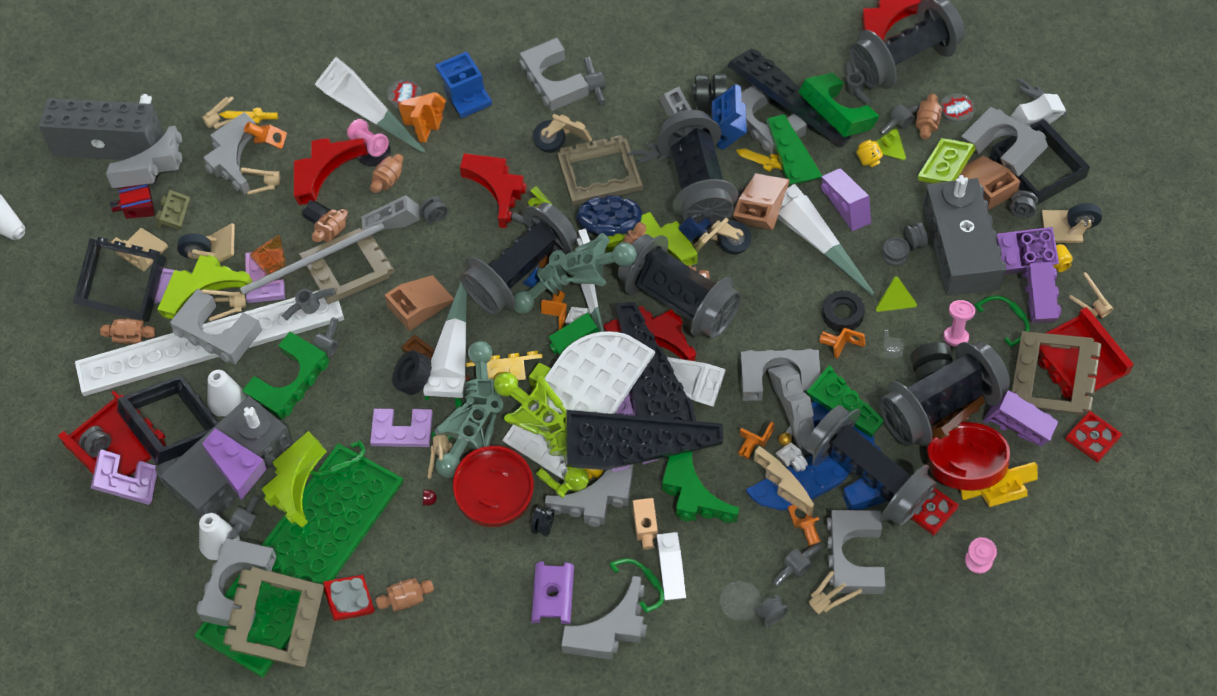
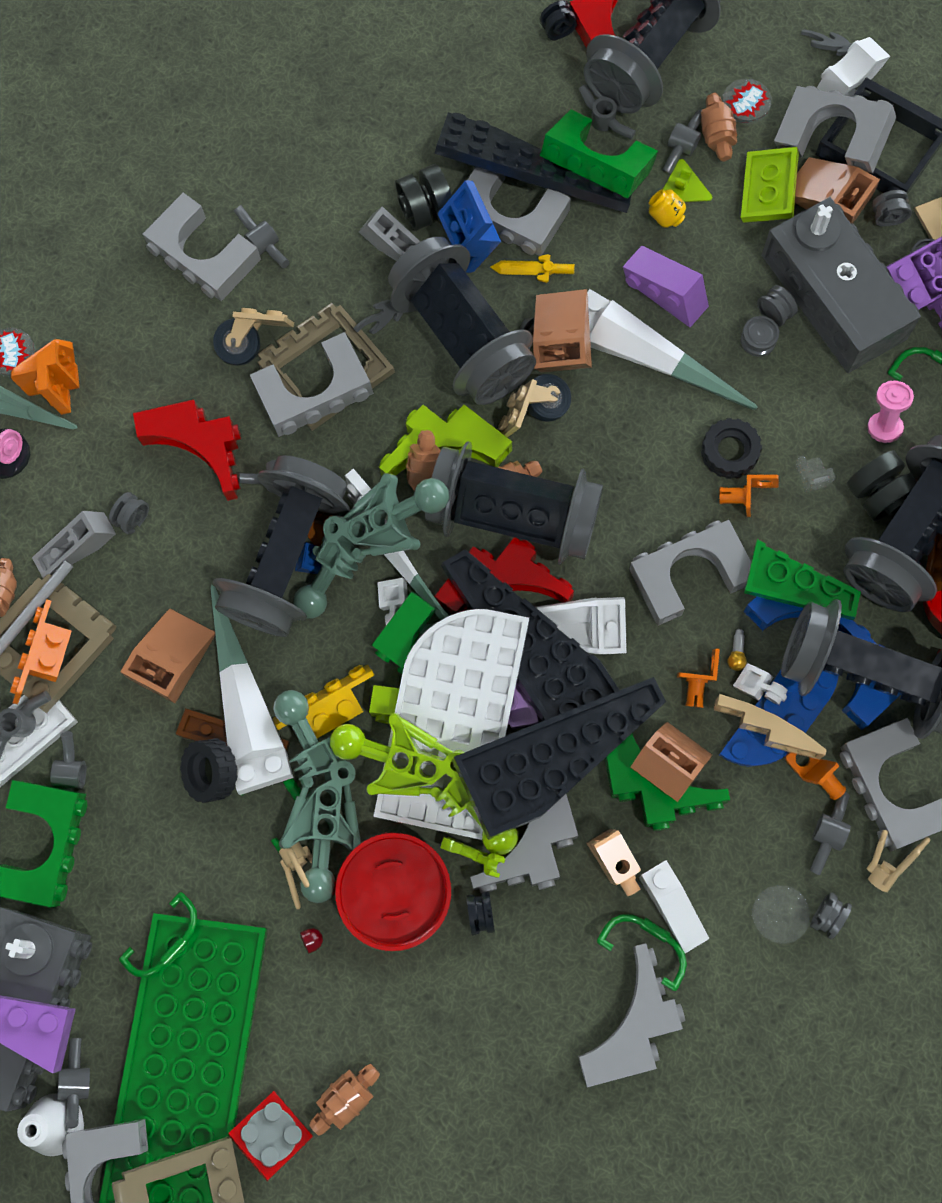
camera: 20 degrees left, 15 degrees up
(292, 474) = (112, 985): lime arch -> none
(344, 266) = (45, 652): none -> orange bracket
(386, 173) = (39, 482): nougat piece -> none
(386, 434) = (214, 870): lavender plate -> none
(463, 84) = (86, 309): blue bracket -> none
(540, 197) = (266, 441): lime piece -> none
(548, 580) = (543, 1034): medium lavender piece -> none
(555, 307) = (358, 592): orange bracket -> none
(565, 187) = (291, 412): none -> light grey arch
(609, 215) = (379, 445): dark blue plate -> none
(692, 229) = (494, 410): dark blue bracket -> none
(708, 473) = (671, 761): none -> nougat slope
(792, 154) = (570, 248): green wing -> none
(795, 402) = (738, 612): light grey arch -> none
(851, 17) = (558, 20): none -> black wheel
(896, 297) = (791, 402): lime piece -> none

